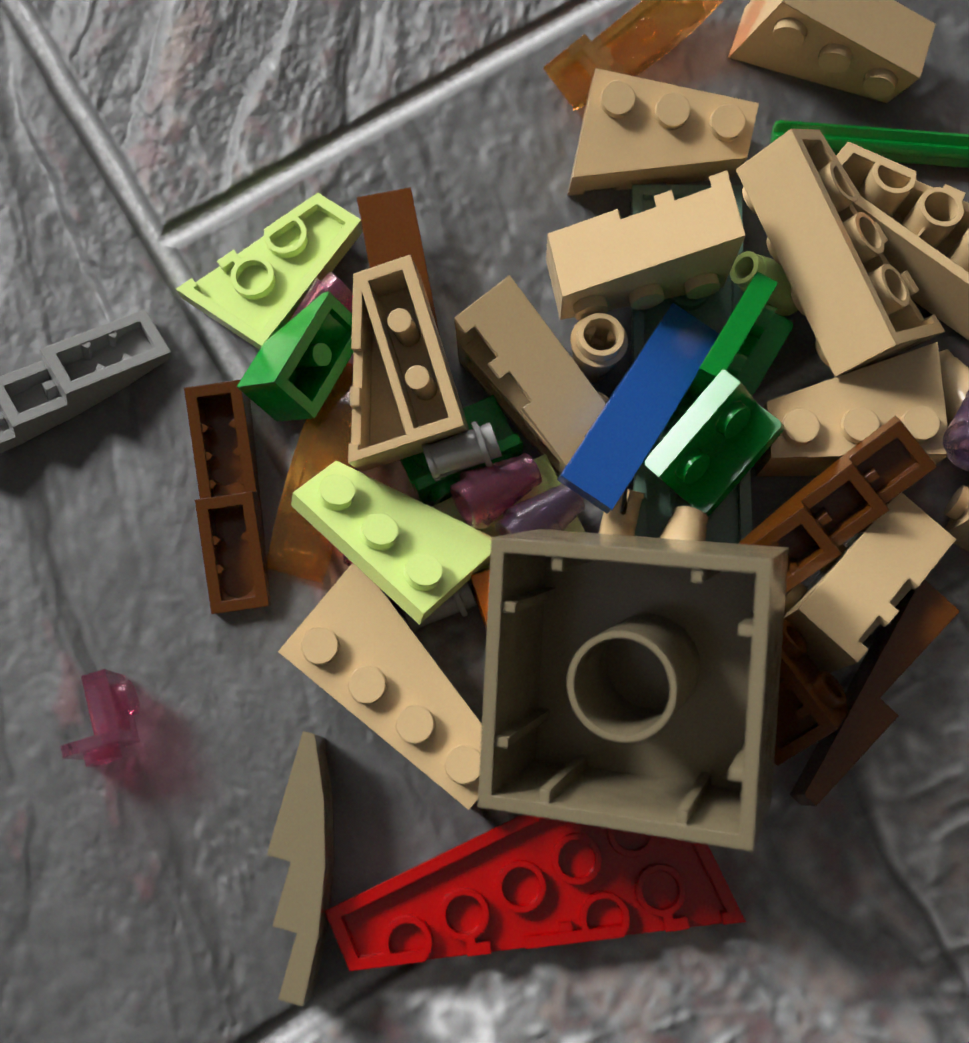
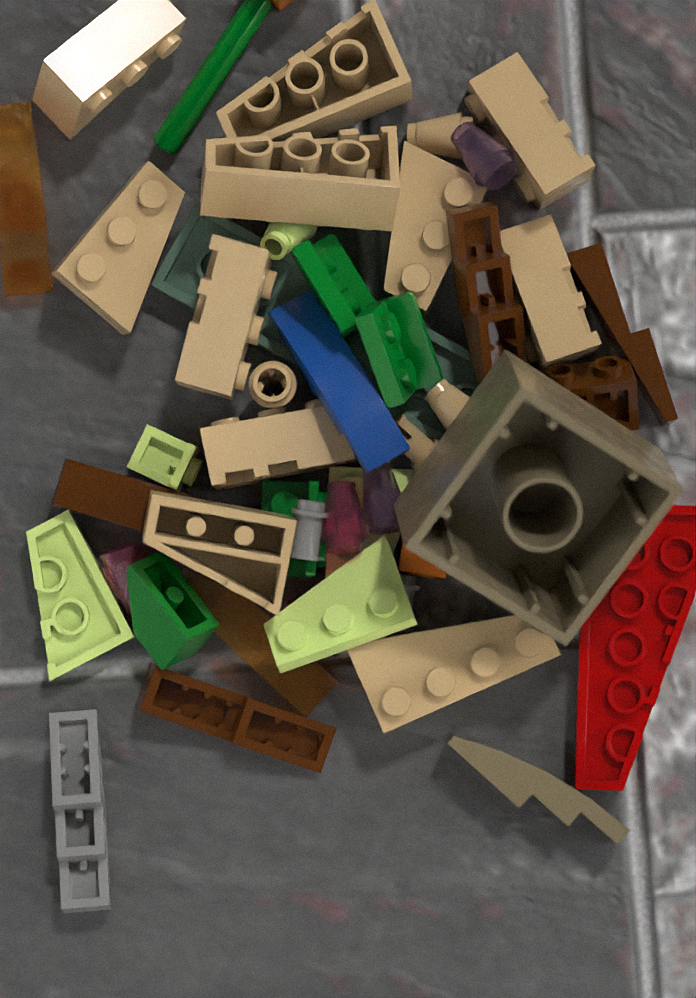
camera: 65 degrees left, 10 degrees up
(112, 710) = (356, 873): clear pink bracket -> none
(459, 282) = (165, 459): none -> yellowish green bracket

